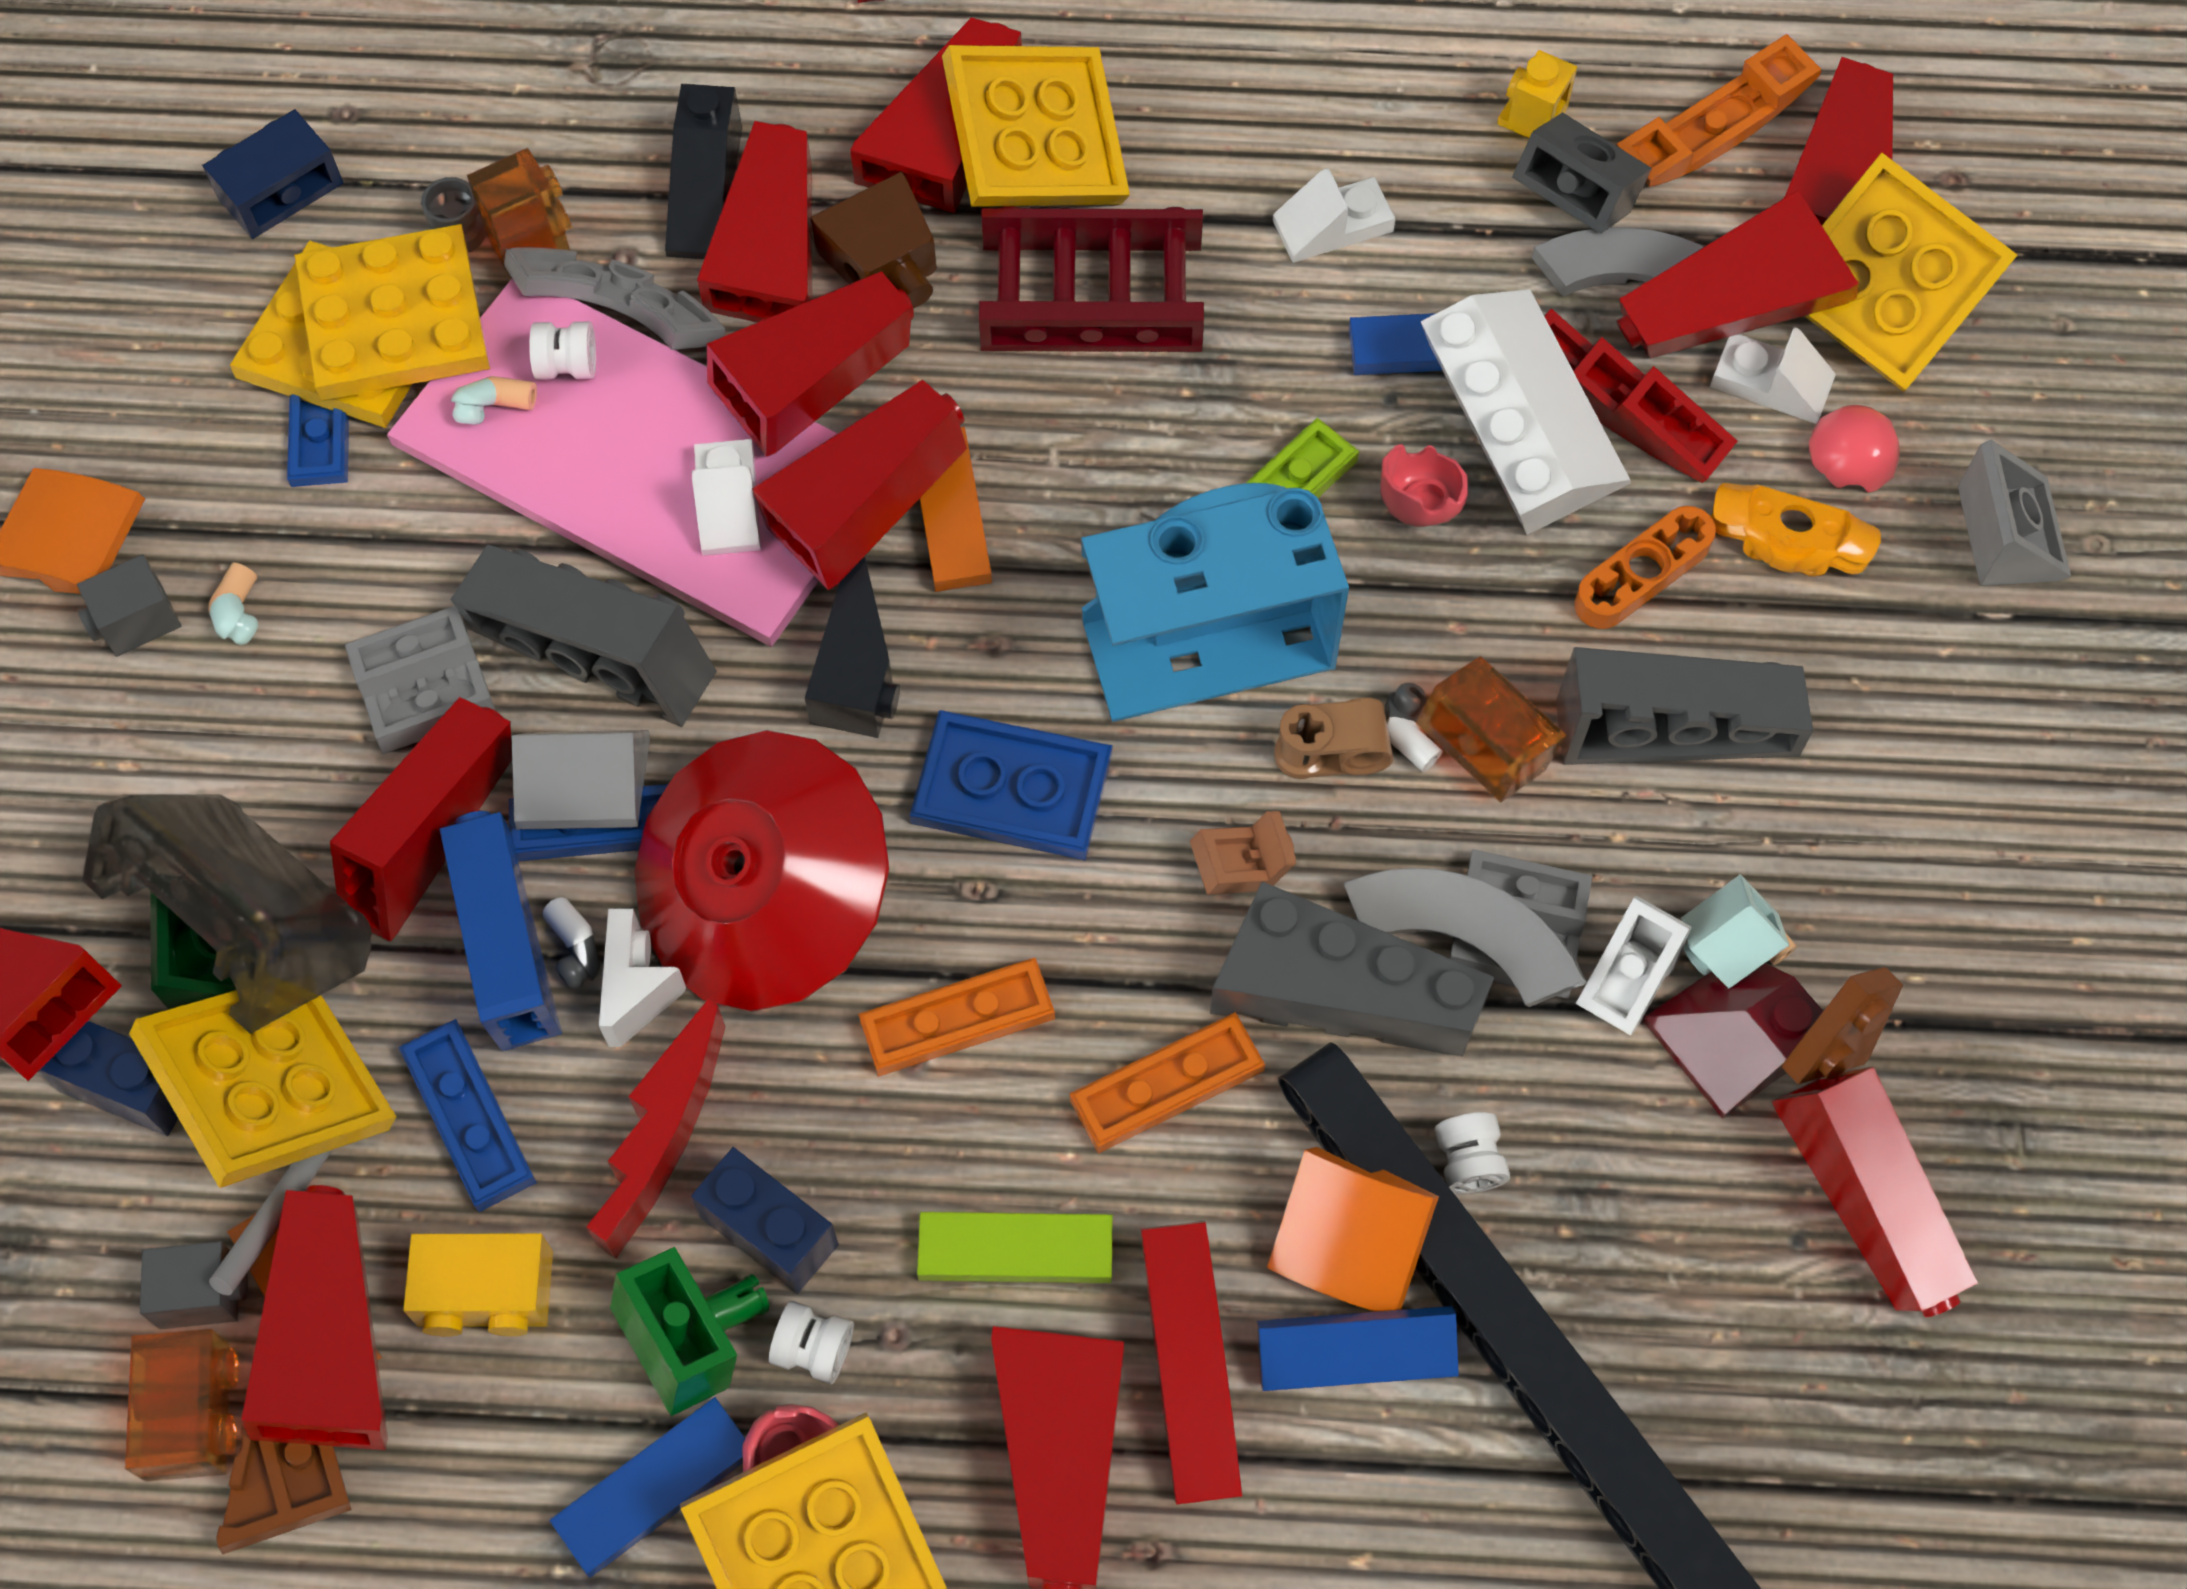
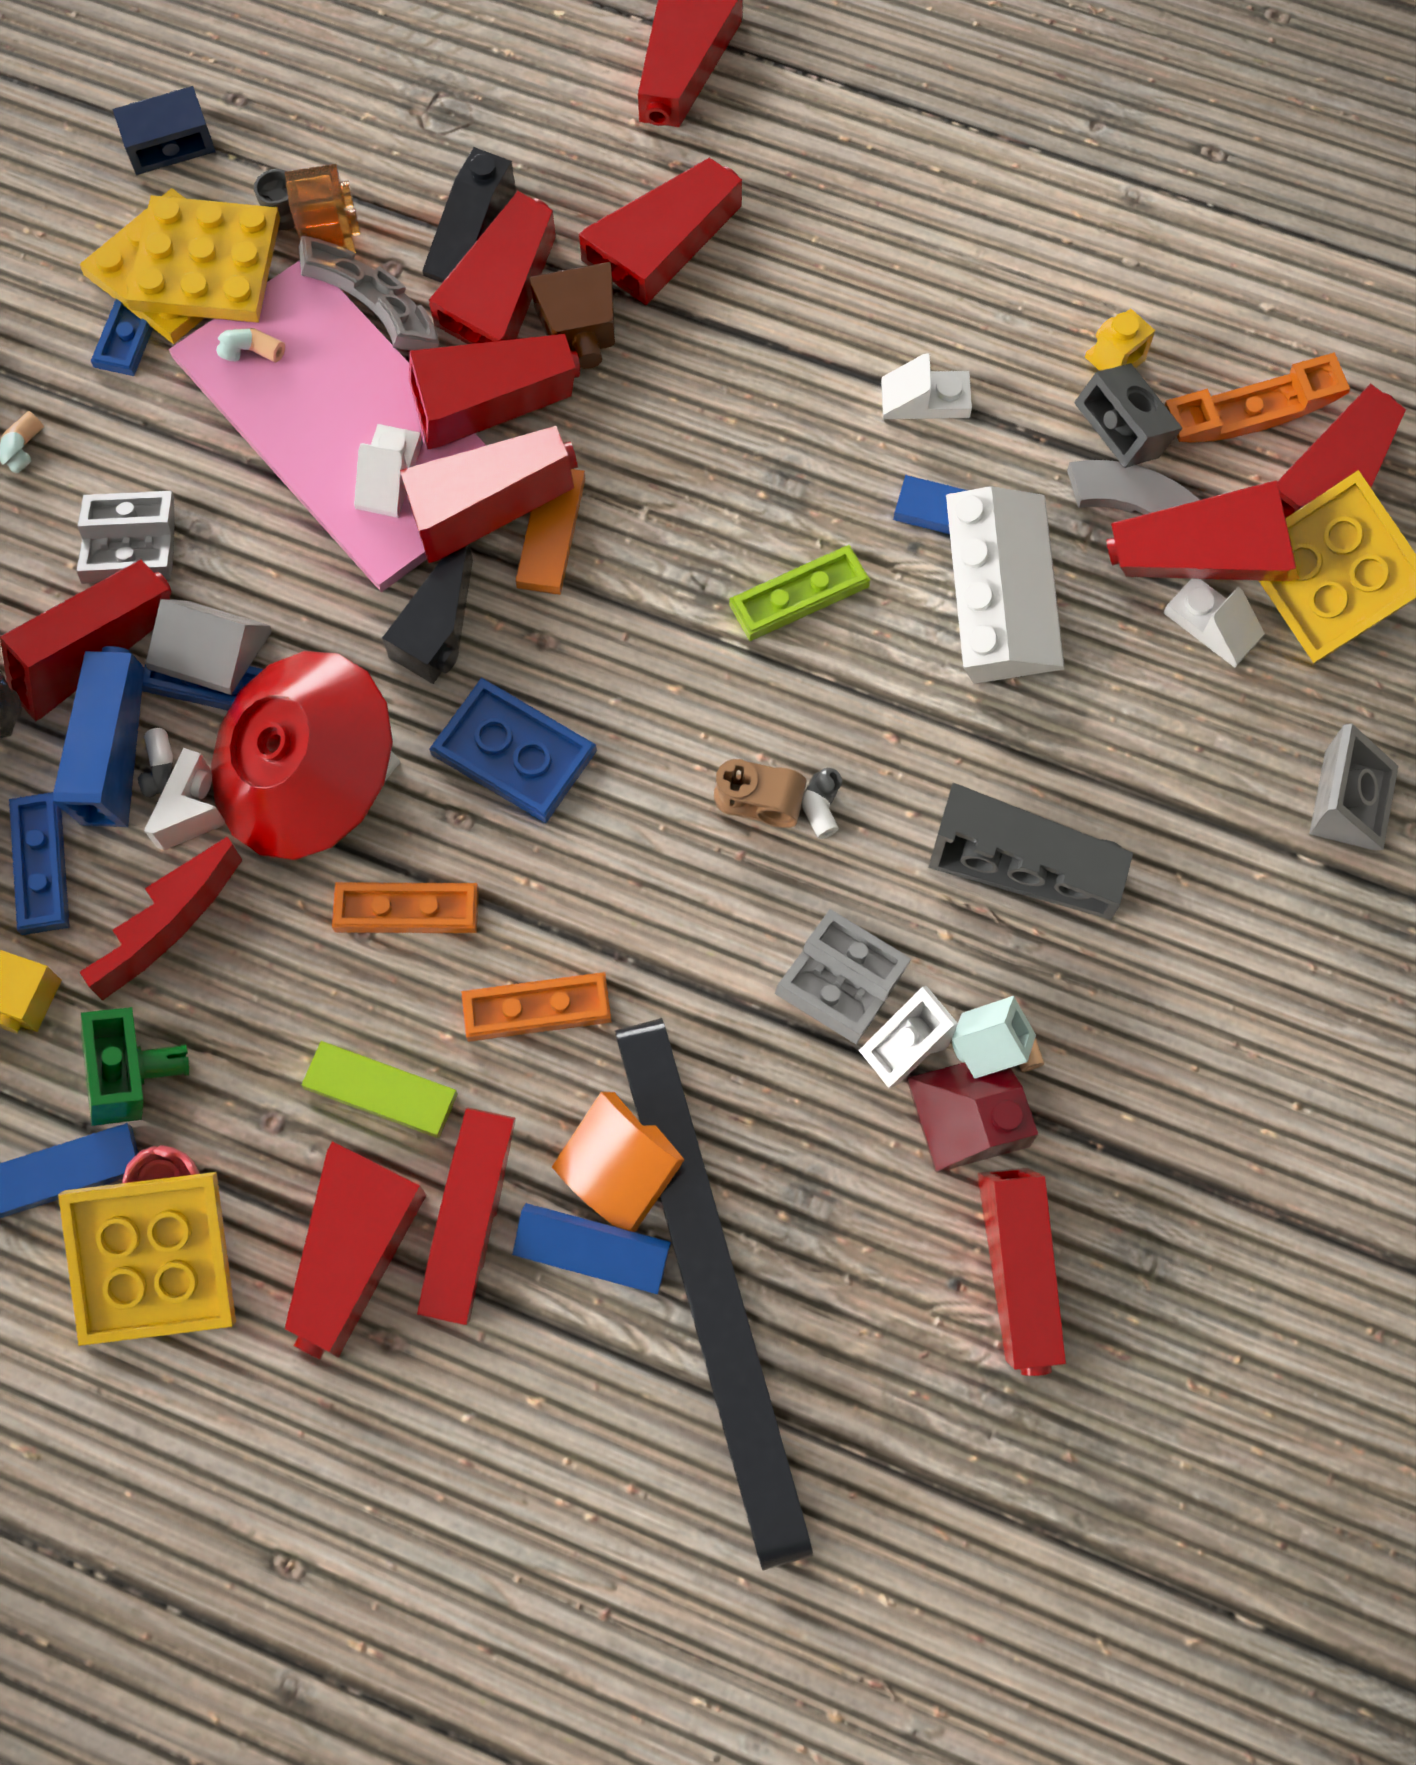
camera: 20 degrees right, 5 degrees up
(562, 350) = (311, 324): white wheel -> none
(587, 628) = (253, 538): dark grey wedge -> none
(765, 1220) = (208, 1009): dark blue brick -> none
(811, 1342) = (207, 1107): white wheel -> none
(1035, 126) = (723, 255): yellow plate -> none
(1091, 325) = (710, 423): dark red fence -> none
(1214, 582) = (701, 639): dark azure piece -> none
(1244, 856) = (656, 858): nougat bracket -> none
(1346, 977) = (683, 966): dark grey wedge -> none
(1422, 486) = (904, 621): coral hair -> none
(1472, 1153) = (733, 1135): white wheel -> none
(1474, 913) = (807, 960): light grey tile -> none
(1490, 728) = (878, 823): clear orange brick -> none
(1636, 589) = (1087, 736): orange beam -> none
(1643, 406) = (1098, 609): red slope -> none
(1833, 541) = (1206, 763): light orange piece -> none
(1846, 1028) = (1042, 1140): dark orange wing -> none
(1855, 447) = (1254, 696): coral hair -> none

